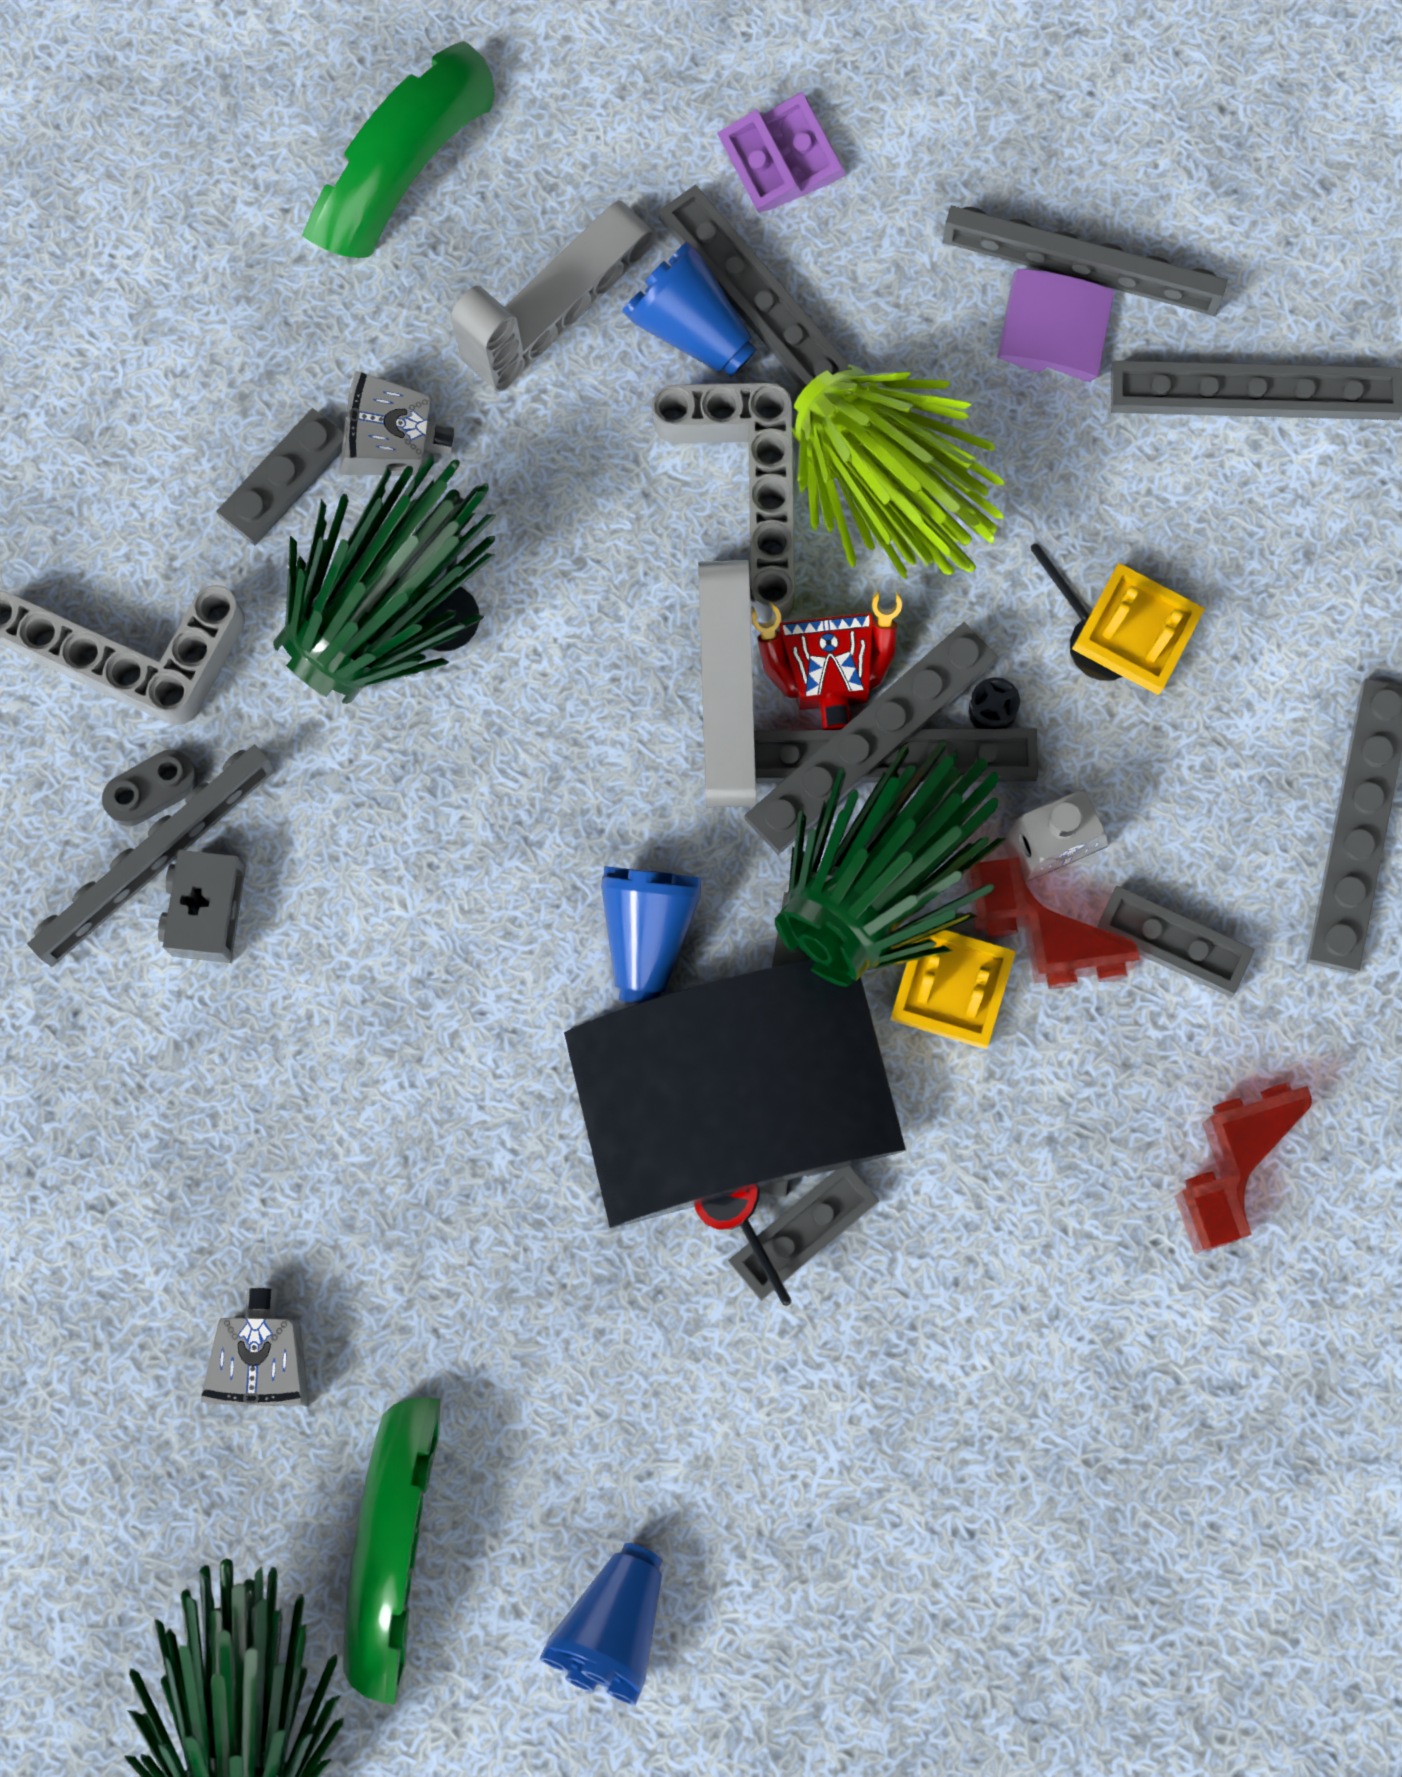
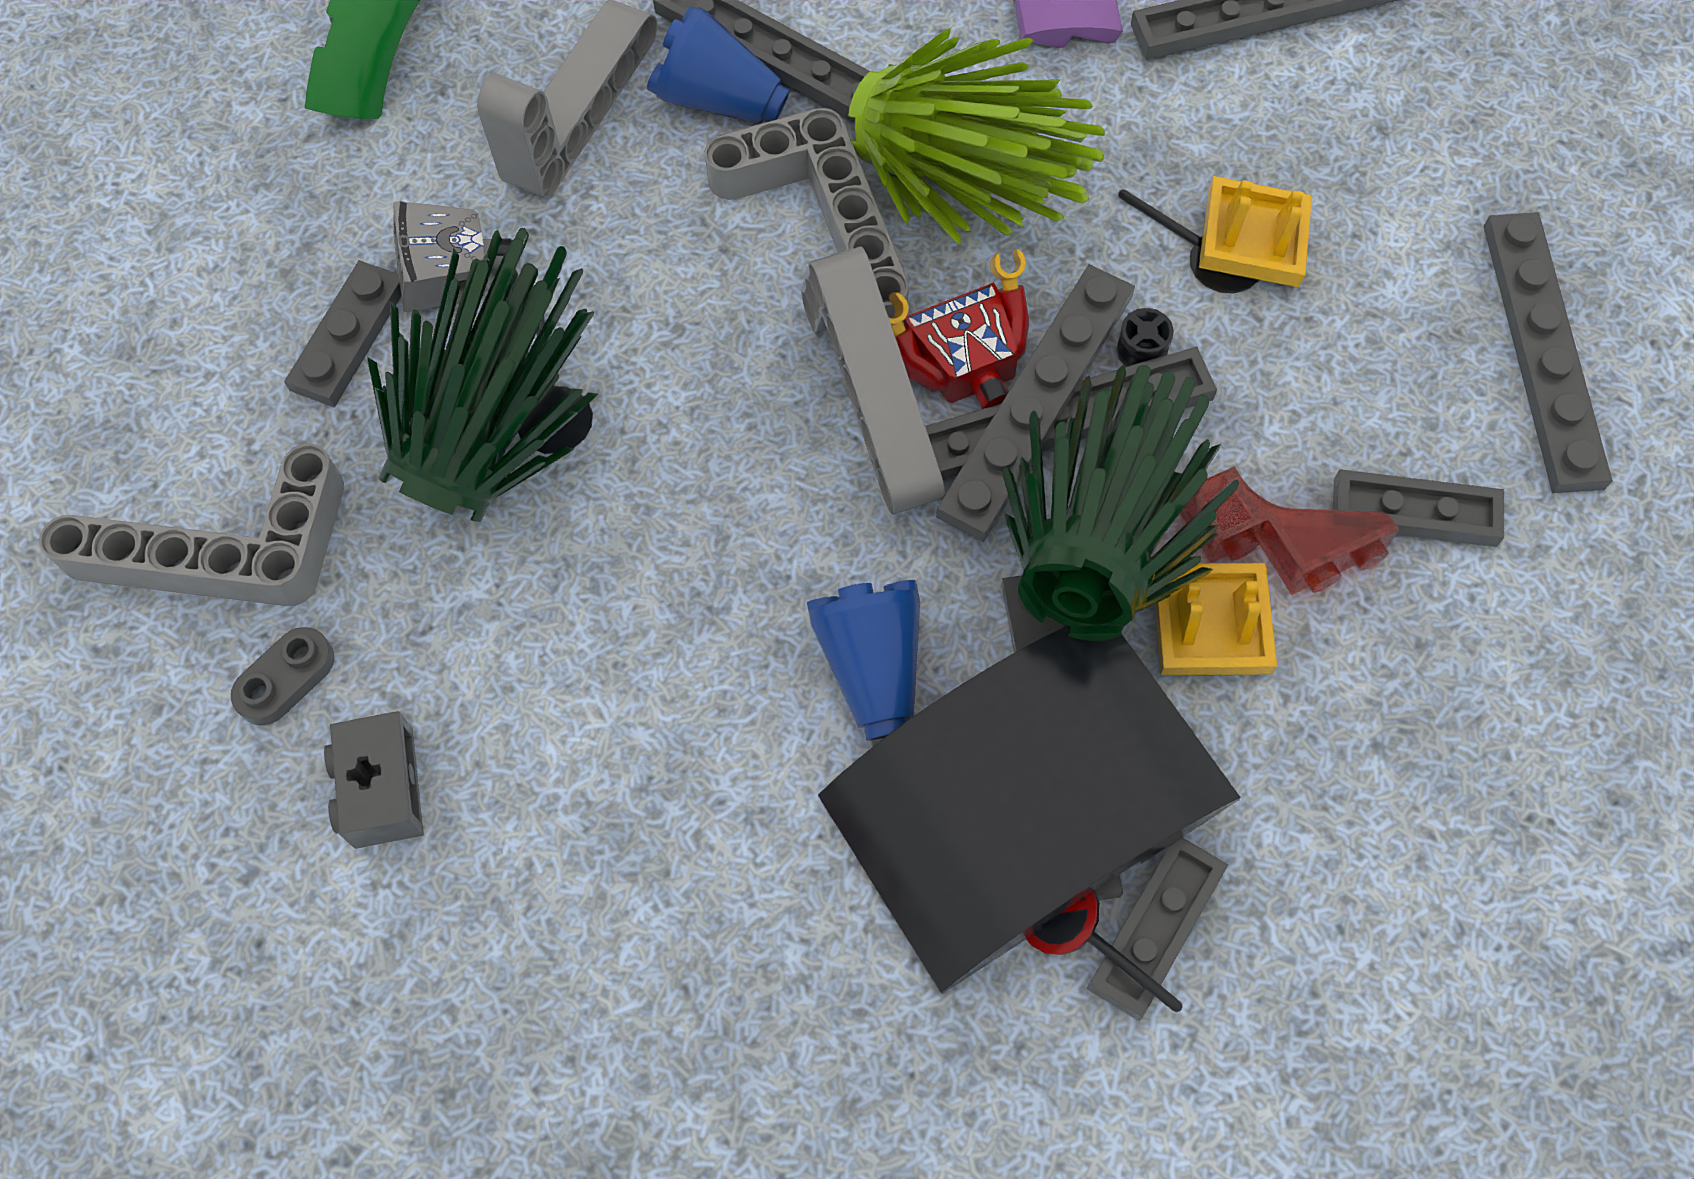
camera: 20 degrees left, 10 degrees down
(138, 866) = (290, 760): dark grey plate -> none
(1056, 835) = (1269, 427): light grey torso -> none
(1239, 1141) = (1576, 685): clear red arch -> none

